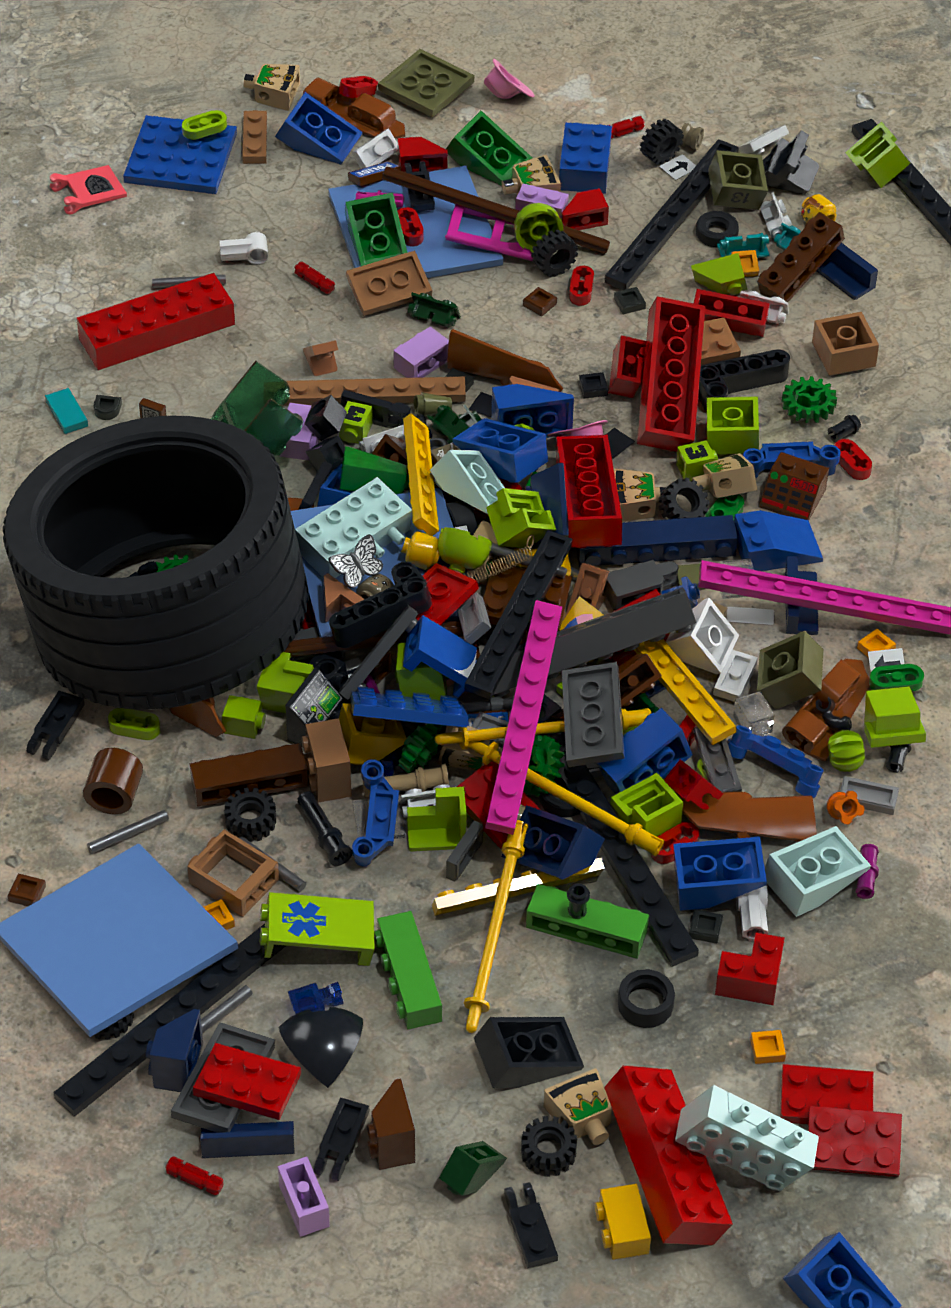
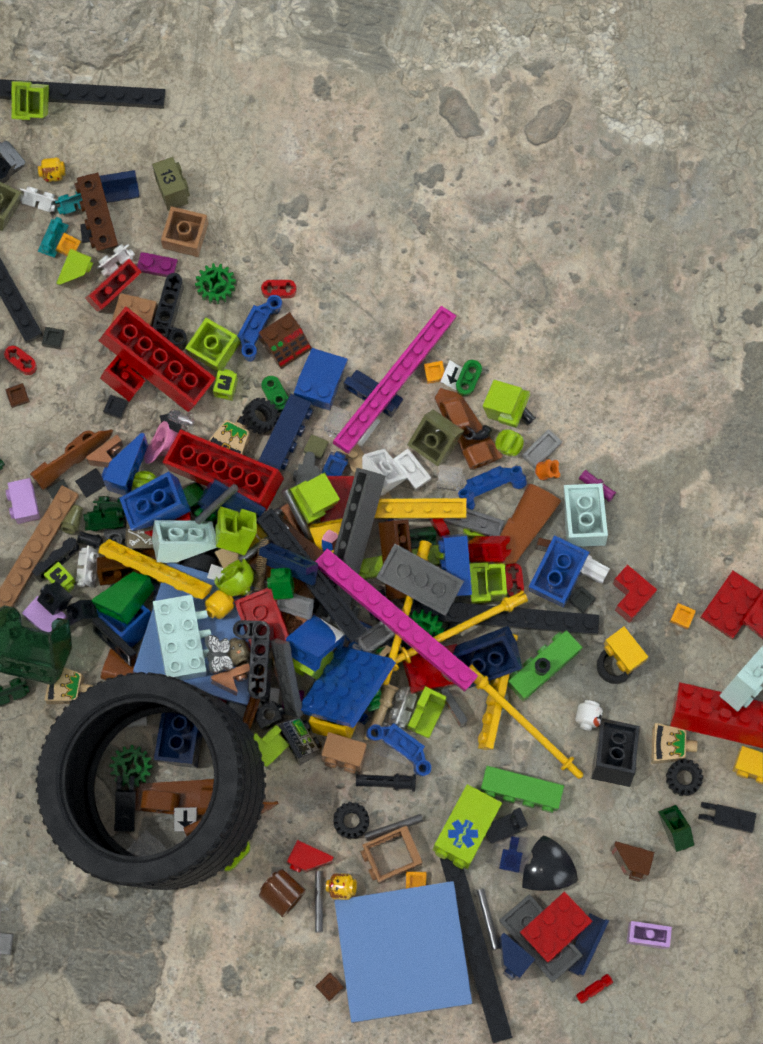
camera: 60 degrees left, 25 degrees up
(55, 723) = (206, 904): black hinge -> none
(160, 839) = (341, 886): none -> yellow head
(173, 791) = (307, 858): none -> red slope
(243, 717) = (275, 784): lime brick -> none
(265, 769) = (323, 805): reddish brown brick -> none
(341, 1136) = (614, 890): black hinge -> none
(353, 980) = (506, 826): none -> black bracket
(487, 584) = (281, 583): none -> green brick
(517, 577) = (301, 567): none -> dark blue panel
(547, 485) = (216, 504): none -> flat silver bar
(557, 998) = (589, 715): none -> white head
(592, 571) = (297, 513): none -> flat silver bar
(620, 579) = (315, 497): none -> lime plate
(625, 446) = (185, 420): none -> clear piece
(667, 985) = (625, 650): none -> yellow brick
(716, 218) = (18, 232): black tyre -> none
(728, 476) = (255, 376): tan torso -> none
(786, 339) = (156, 264): none -> magenta plate
(849, 425) = (251, 277): black pin -> none
(890, 303) = (171, 183): none -> olive brick

